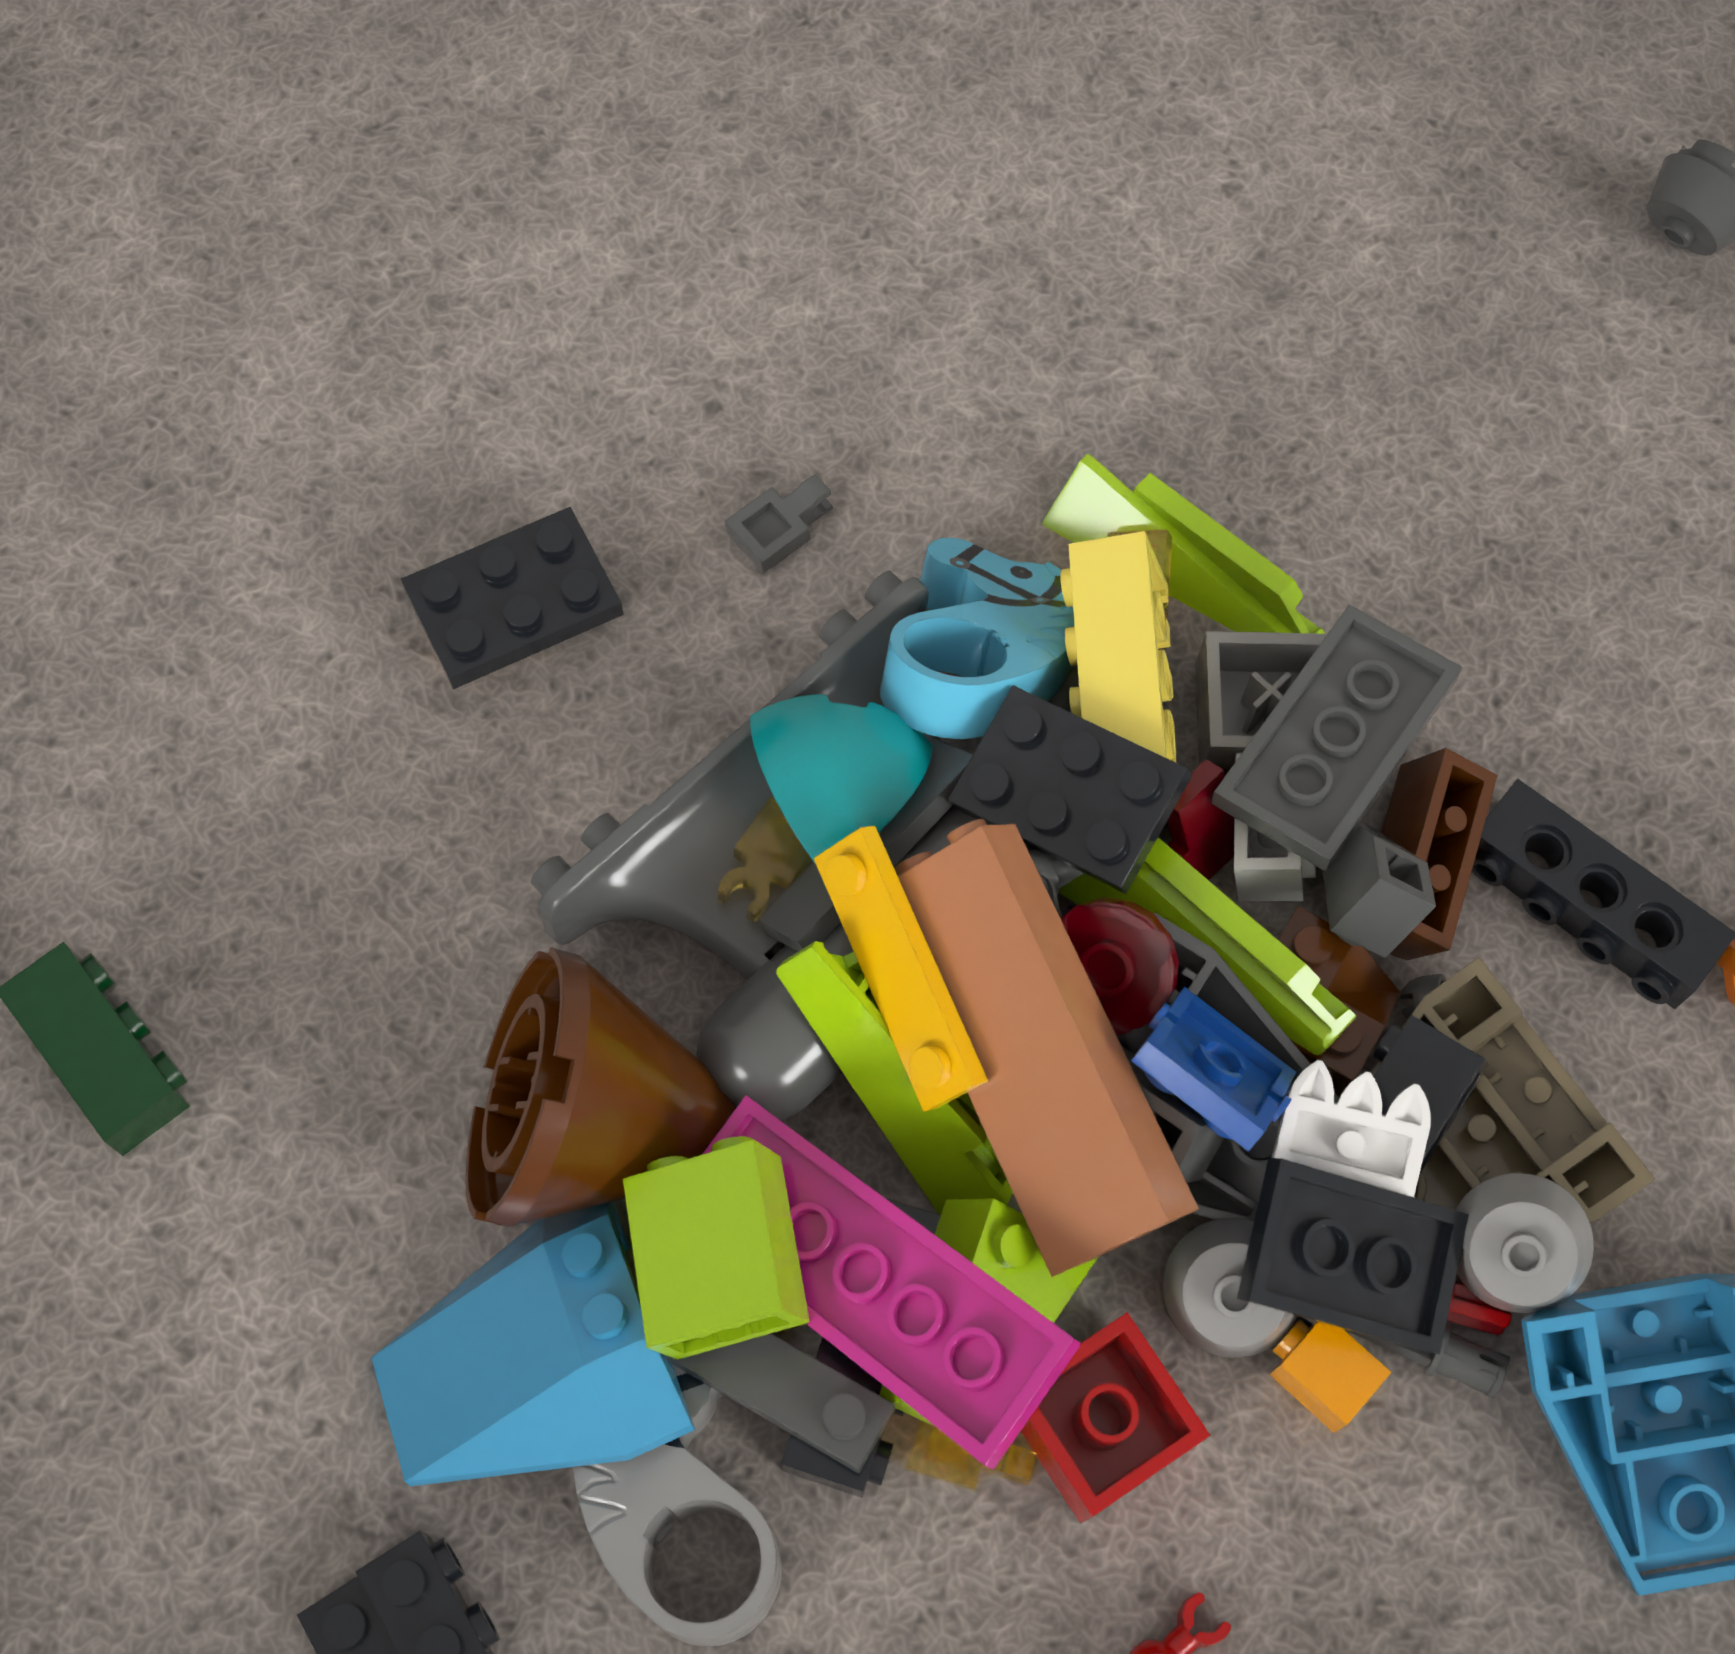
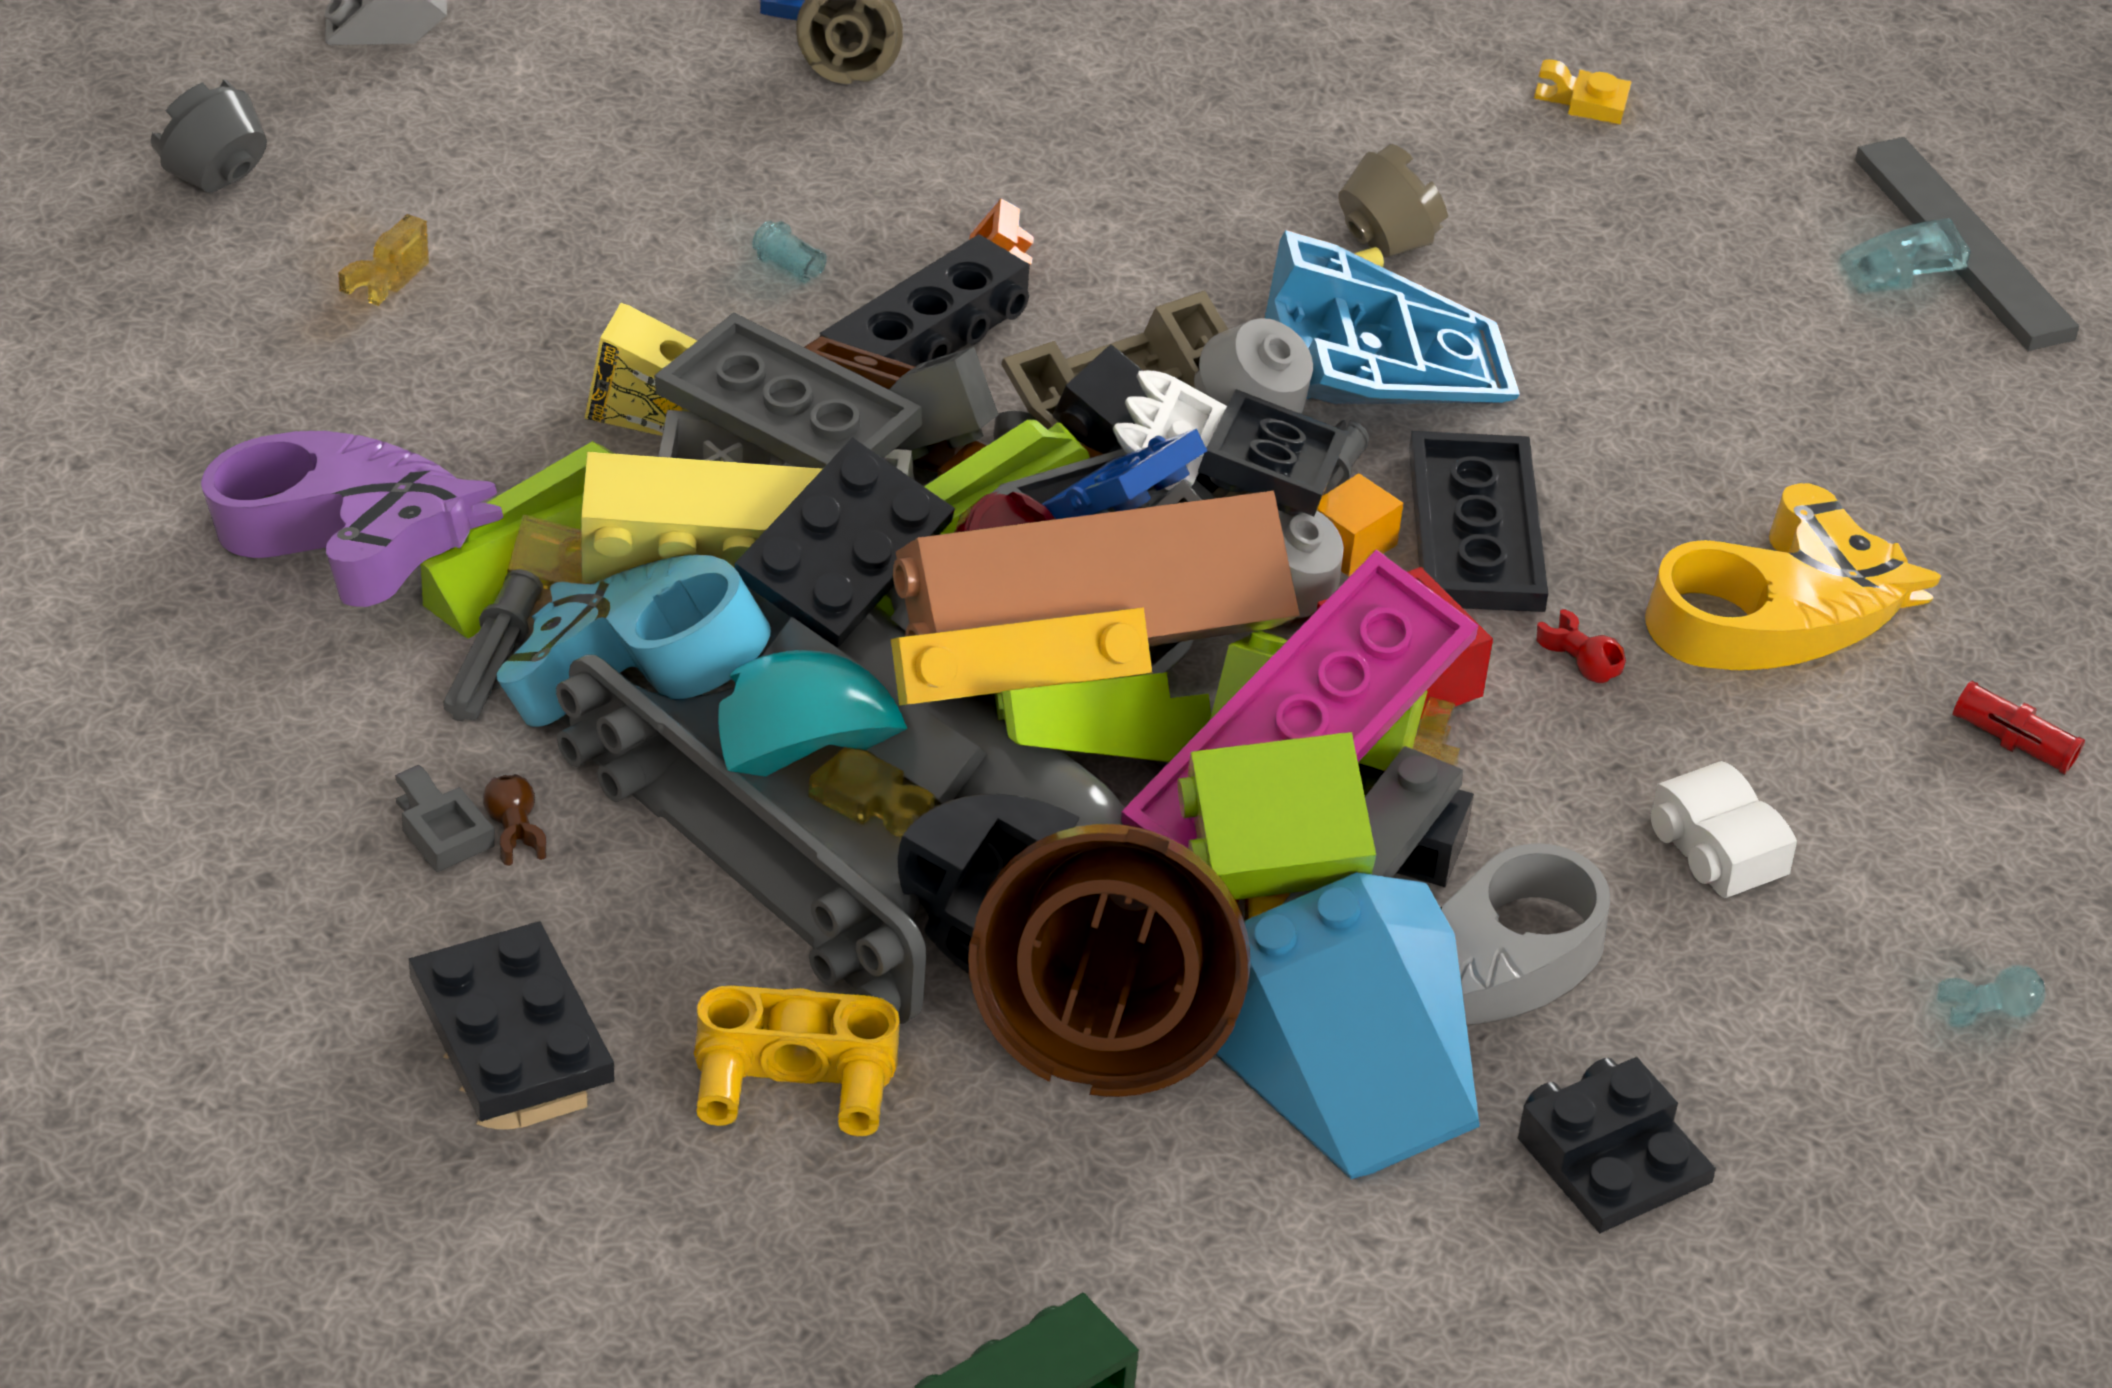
camera: 90 degrees left, 25 degrees down
(513, 836) = (798, 1040): none -> yellow piece
(665, 959) = (958, 853): none -> black brick
(810, 578) = (510, 801): none -> reddish brown arm
(1006, 535) = (501, 628): none -> dark grey axle
(1167, 394) = (347, 493): none -> medium lavender animal
(1375, 1527) = (1479, 519): none -> black plate
(1423, 599) = (624, 371): none -> light yellow torso
(1571, 387) = (396, 260): none -> clear yellow plate
(1697, 740) = (778, 244): none -> clear light blue pin

